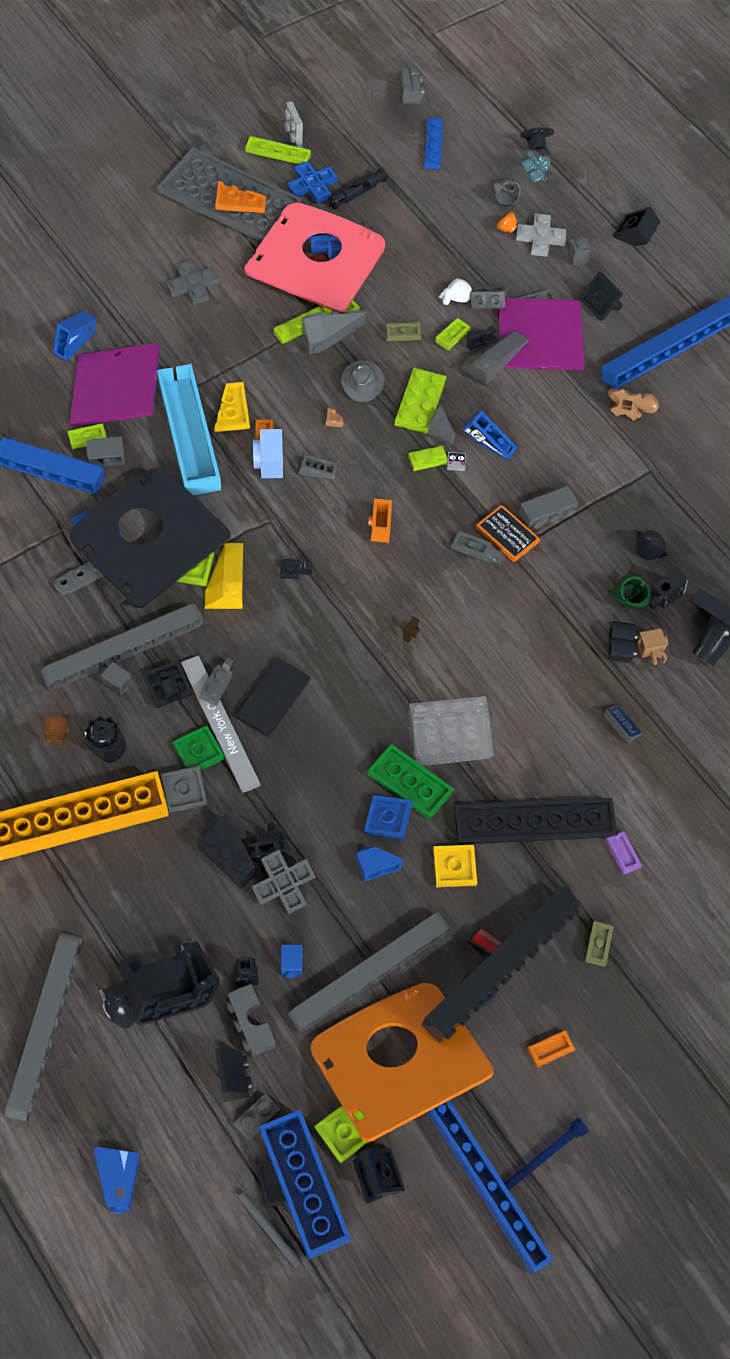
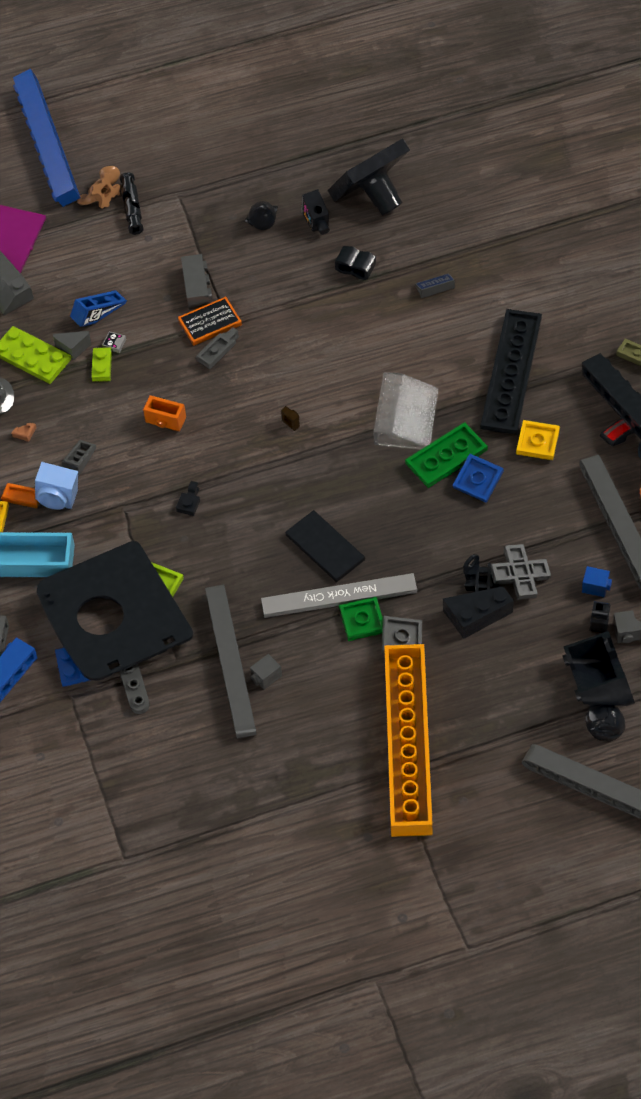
camera: 65 degrees left, 5 degrees down
(56, 731) = (308, 732): clear orange brick -> none
(106, 738) = (330, 687): black hat -> none
(167, 684) = (284, 630): black plate -> none
(217, 683) = (297, 585): dark grey hinge -> none
(226, 581) = (186, 556): yellow wedge -> none
(376, 863) = (519, 498): blue slope -> none
(623, 853) = (558, 317): medium lavender tile -> none
(631, 591) = (310, 238): dark green helmet -> none
(633, 427) = (131, 203): none -> black piece
(653, 644) = (366, 241): medium nougat brick -> none

